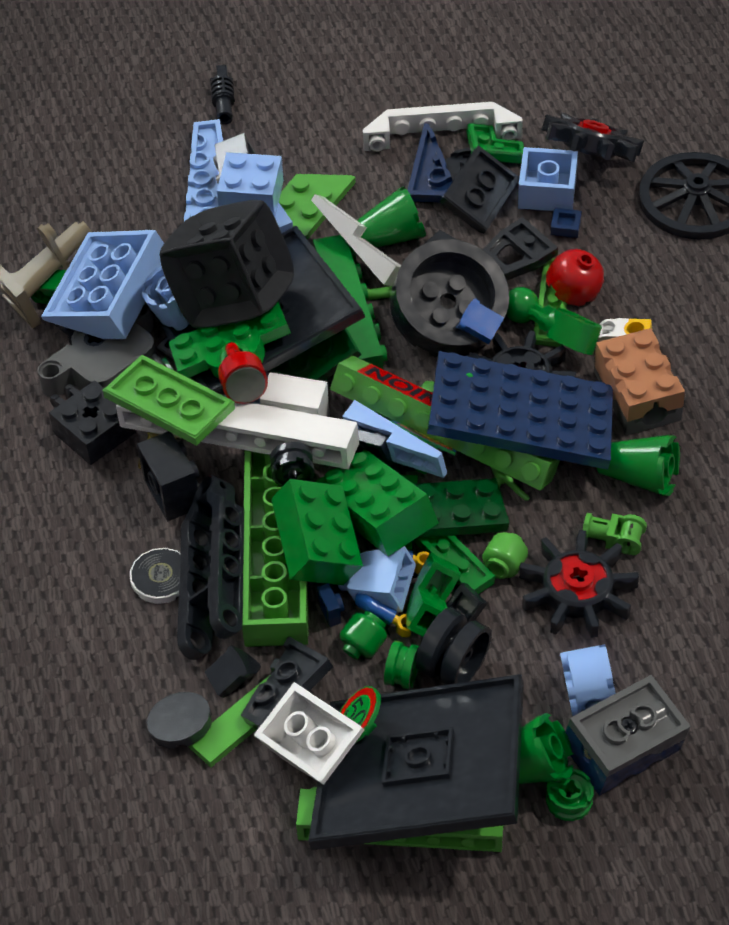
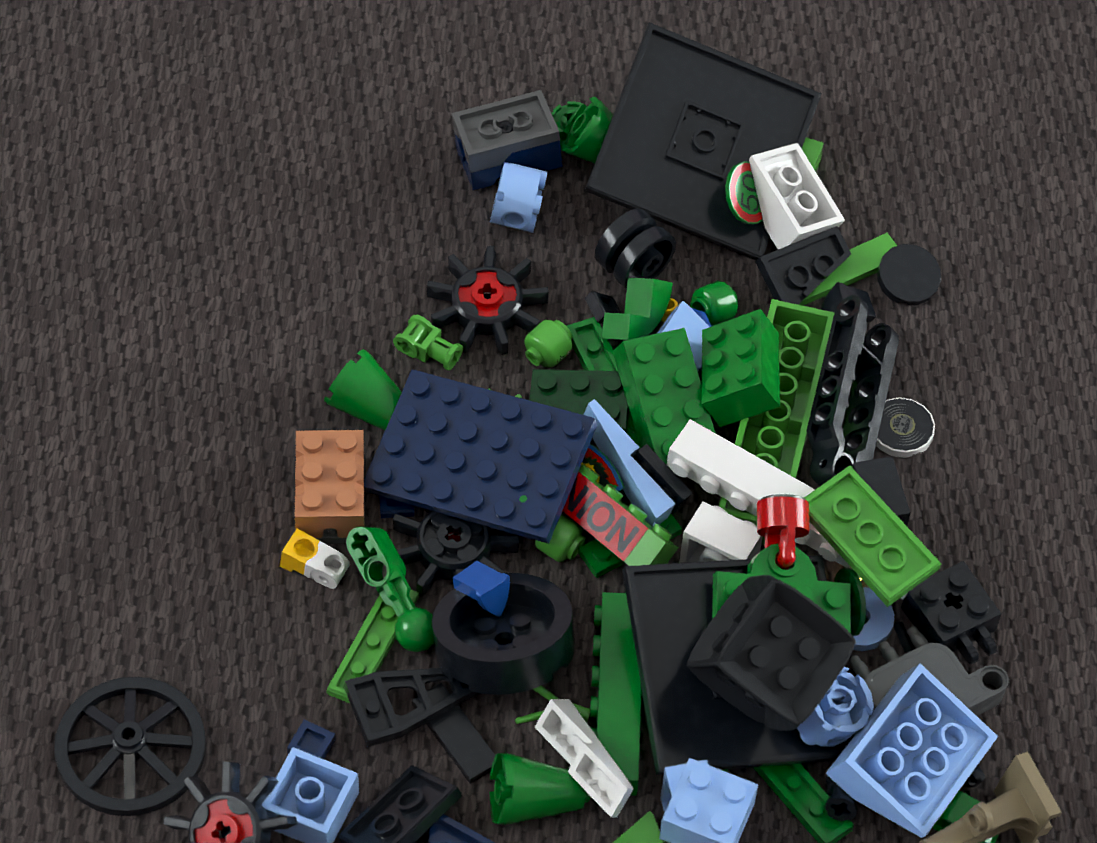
camera: 170 degrees left, 5 degrees up
(291, 461) = (750, 435): black wheel -> none
(401, 665) = (685, 261): green wheel -> none
(575, 277) = (337, 648): red cylinder -> none

